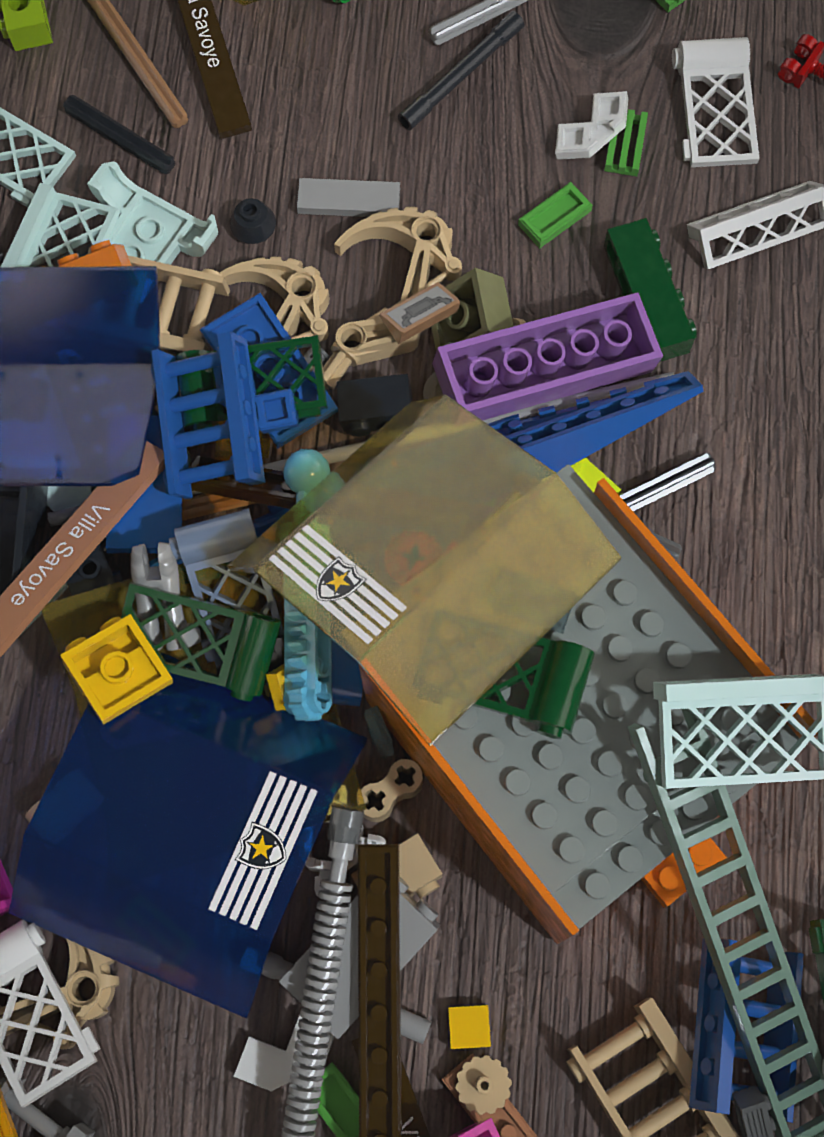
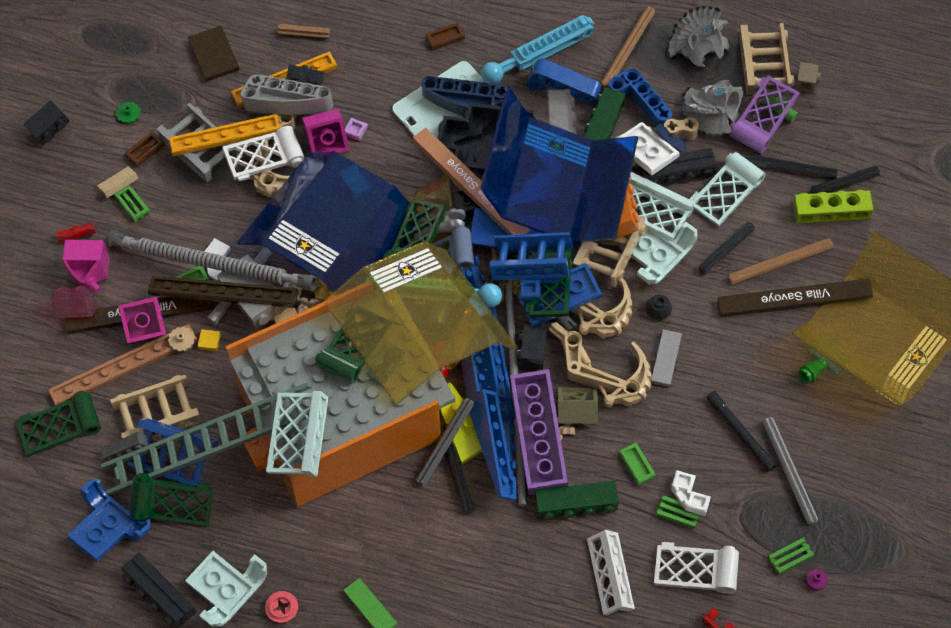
camera: 100 degrees right, 10 degrees down
(115, 668) = (403, 194): yellow plate -> none
(420, 312) = (579, 372): slope -> none

